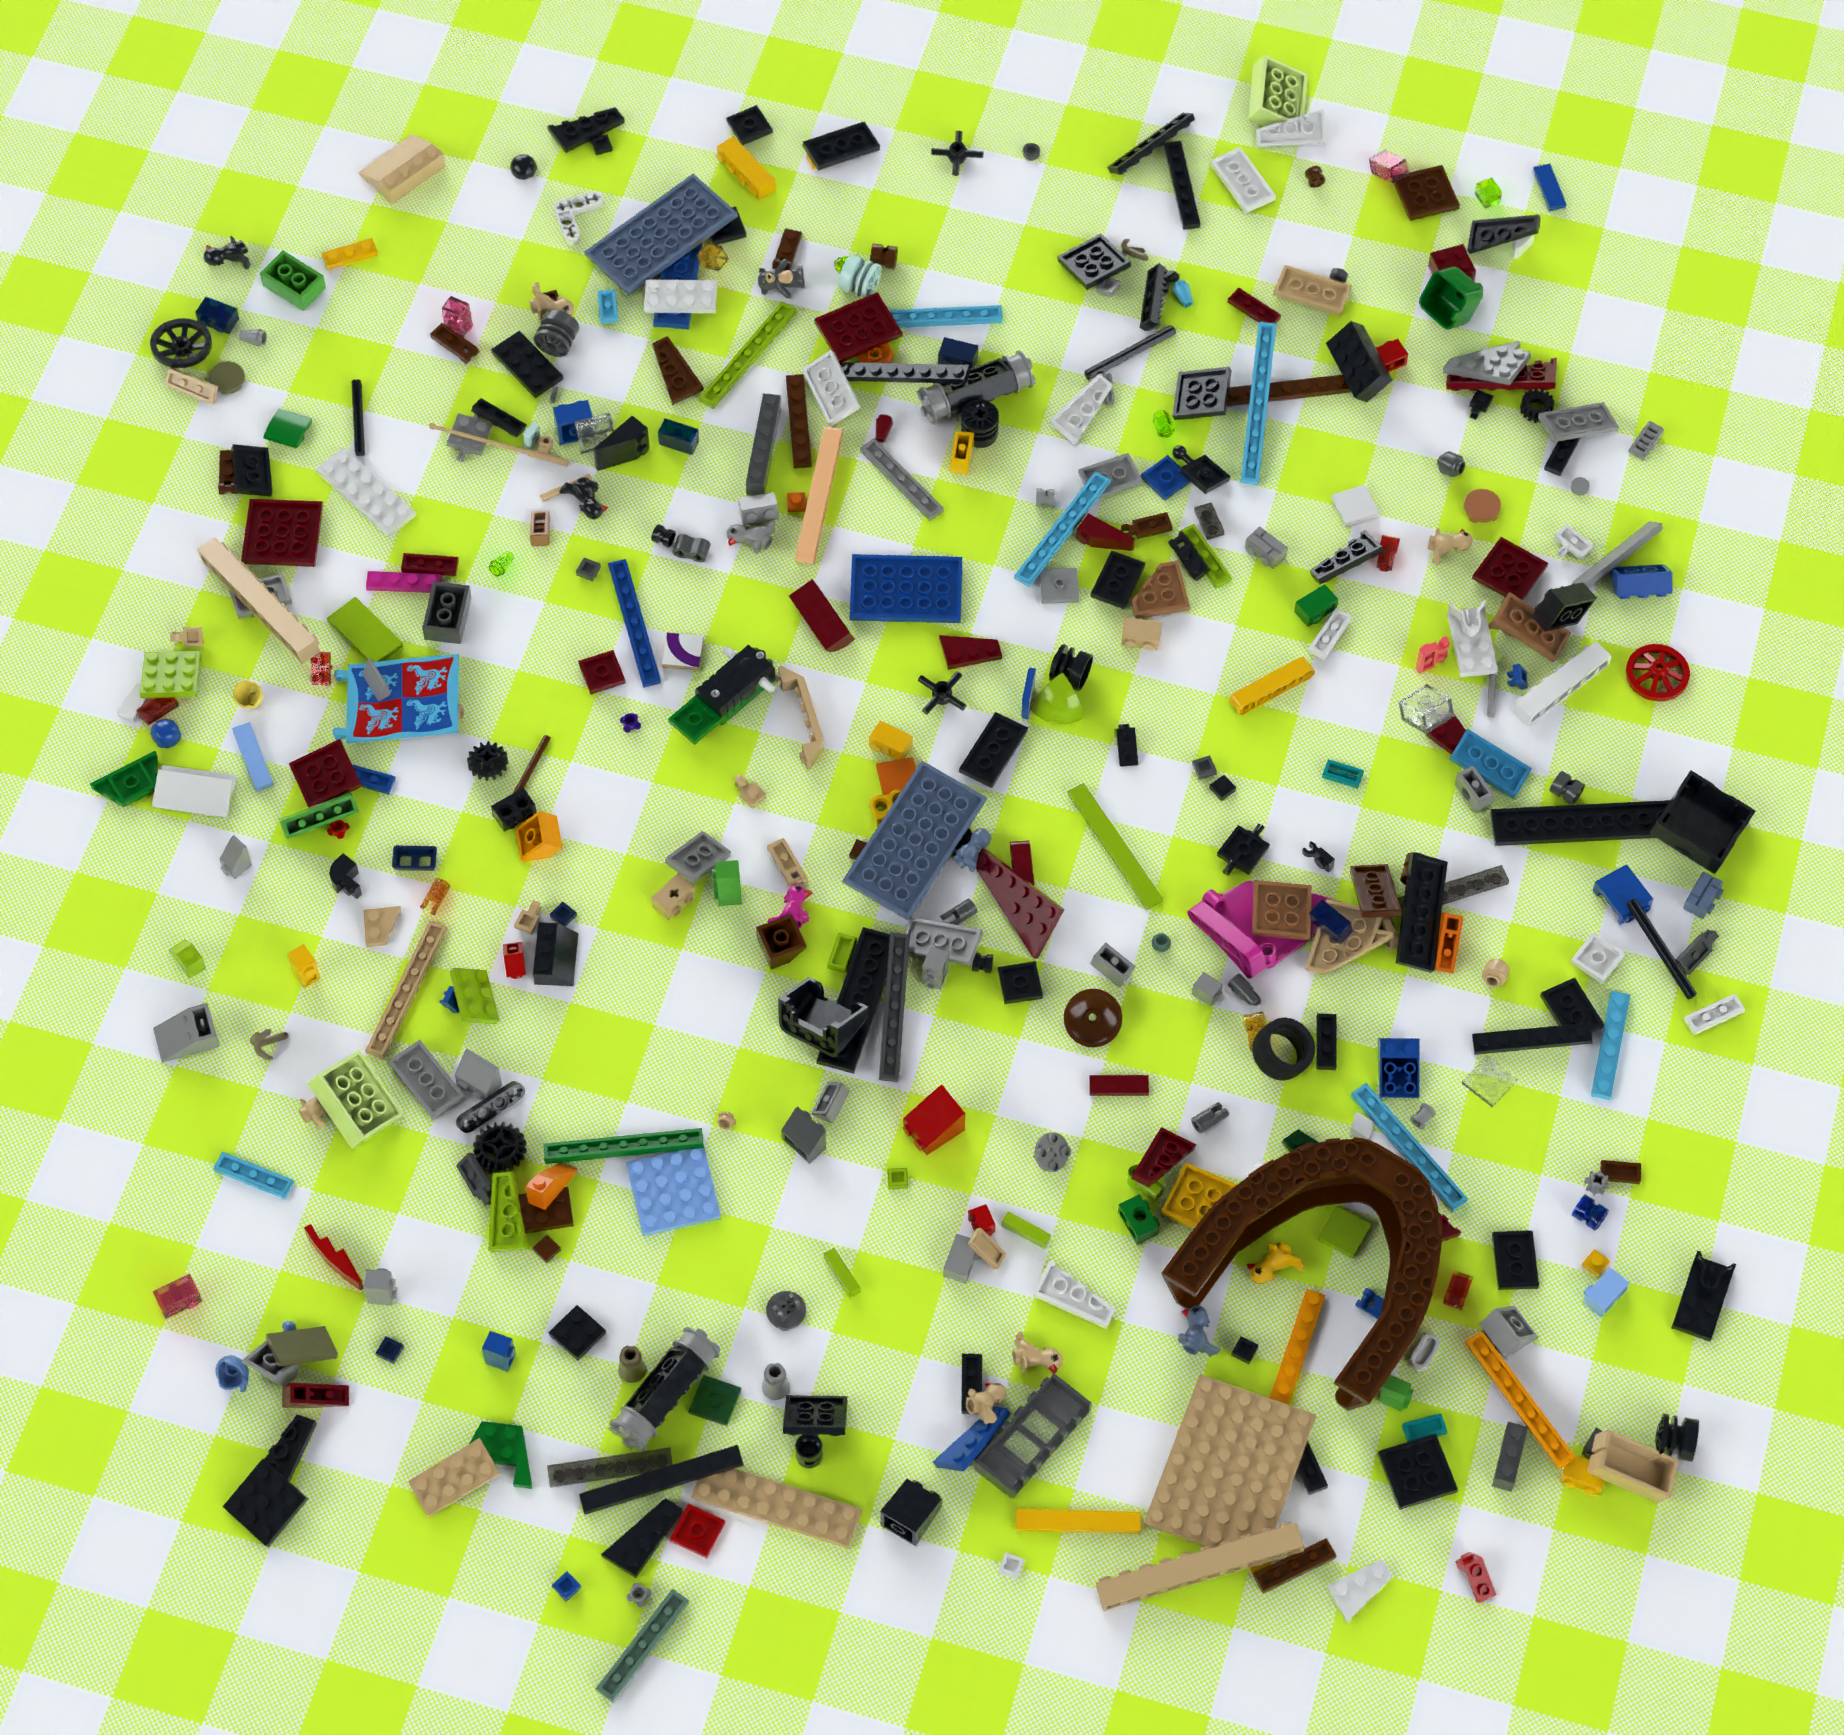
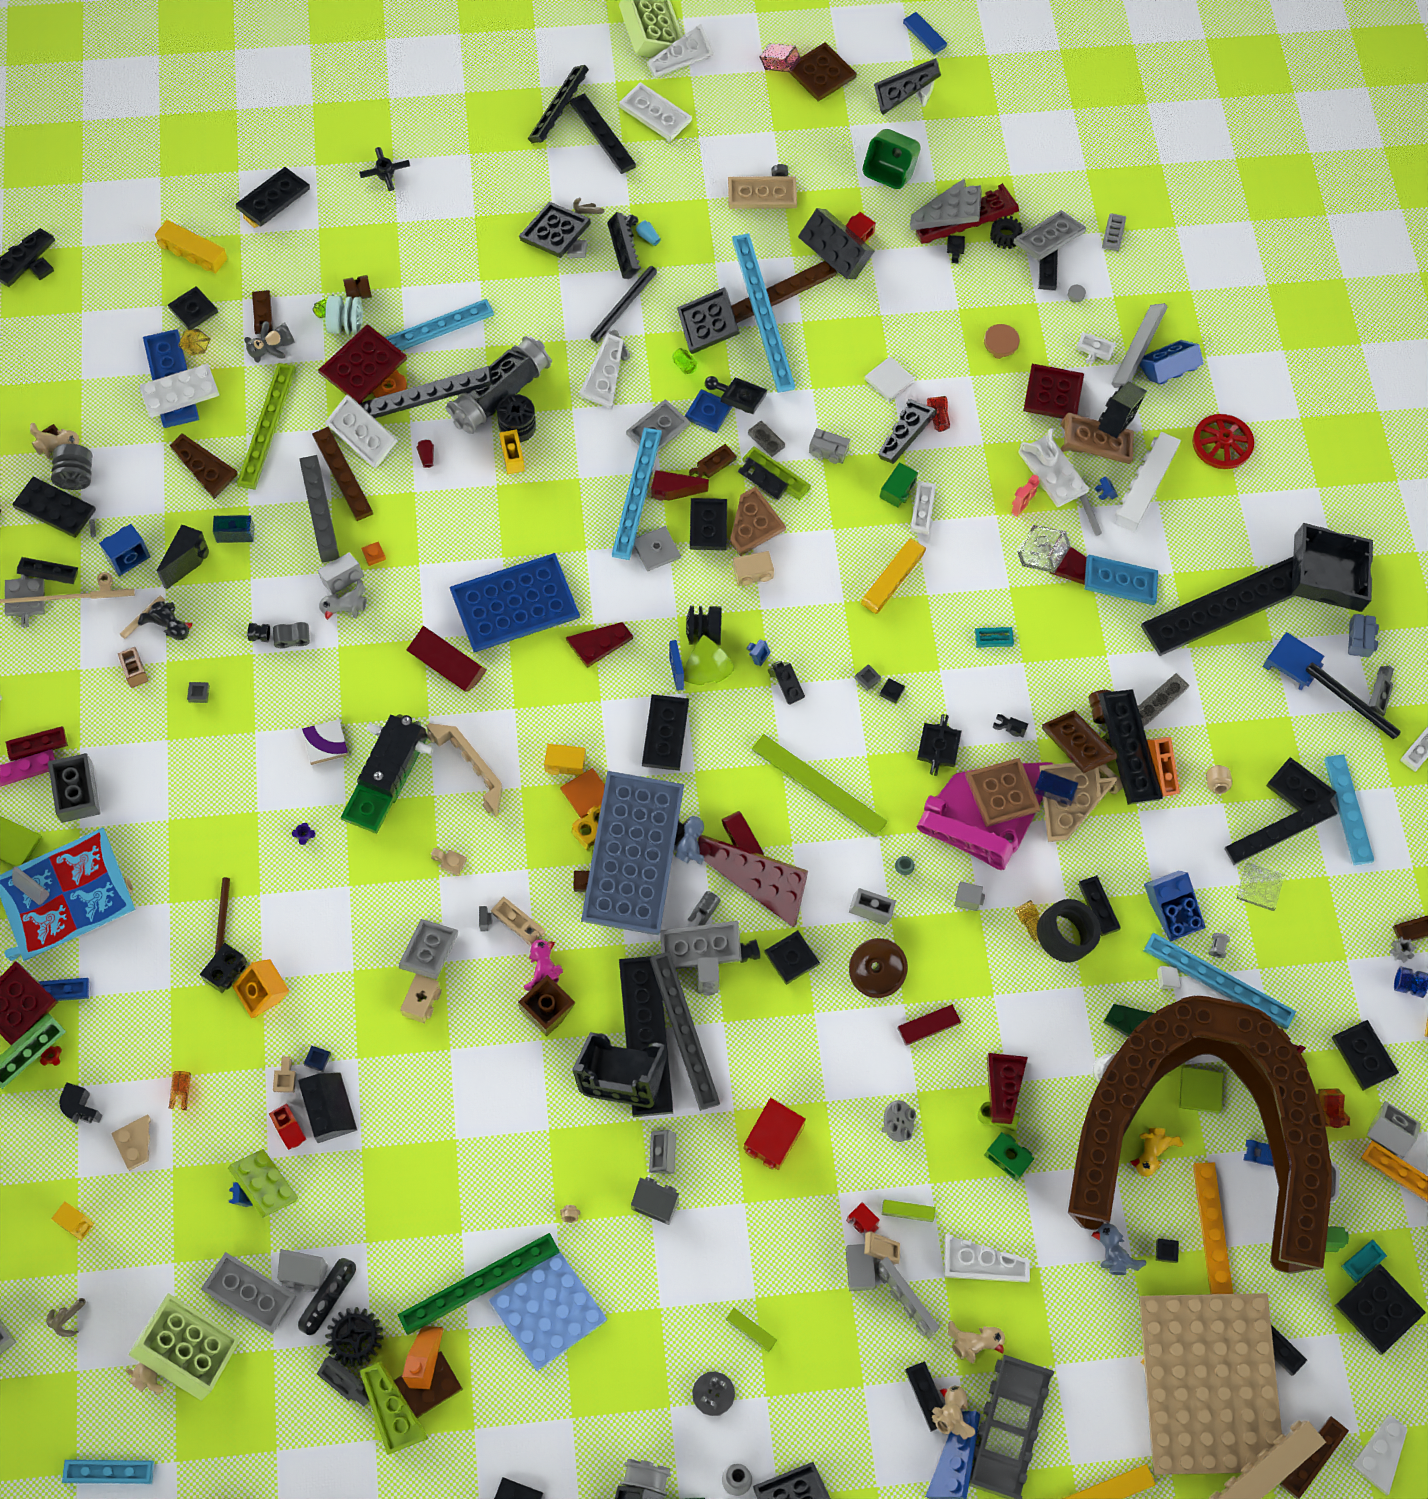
camera: 25 degrees left, 5 degrees up
(406, 990) = (189, 1202): tan tile -> none
(414, 852) = (141, 1051): dark blue piece -> none
(487, 761) = (167, 926): black gear -> none
(501, 563) = (108, 718): clear neon green cone -> none
(531, 435) = (87, 577): light aqua plate -> none
(546, 1249) = (446, 1427): reddish brown tile -> none
(568, 214) = (35, 345): white beam -> none
(593, 431) = (148, 553): clear slope -> none
(601, 672) = (254, 792): dark red plate -> none
(607, 306) = (111, 423): medium azure plate -> none
(634, 623) = (266, 730): blue tile -> none
(660, 234) = (134, 336): sand blue plate -> none
(727, 883) = (471, 966): bright green brick -> none
(749, 125) = (176, 204): black plate -> none
(758, 850) = (484, 918): none -> dark grey plate
(819, 495) = (393, 540): light nougat beam -> none
(842, 953) = (608, 992): lime tile -> none
(897, 1178) = (761, 1206): lime tile -> none
(901, 479) = (464, 497): light grey tile -> none
(942, 699) = (593, 687): black bar -> none
(957, 353) = (466, 358): dark blue brick -> none
(988, 1293) = (912, 1305): none -> light grey plate
(1031, 151) = (451, 146): dark grey tile -> none
(1045, 497) = (607, 468): light grey wheel -> none
(1112, 709) = (759, 652): none -> blue tile
(1194, 1195) = (1055, 1111): yellow plate -> none
(1209, 1117) = (1026, 1026): dark grey hinge -> none
(1244, 990) = (1003, 884): dark grey hinge -> none
(1253, 307) = (717, 225): dark red plate -> none
(1315, 176) = (718, 88): reddish brown wheel -> none
(1442, 544) = (984, 387): tan animal -> none
(1451, 464) = (957, 311): dark grey head -> none
(1452, 257) = (871, 125): dark red brick -> none
(1474, 789) = (1119, 609): light grey brick -> none
(1488, 193) = (876, 54): clear neon green brick -> none
(1566, 787) = (1199, 578): dark grey wheel -> none
(1597, 958) = (1299, 730): white plate -> none

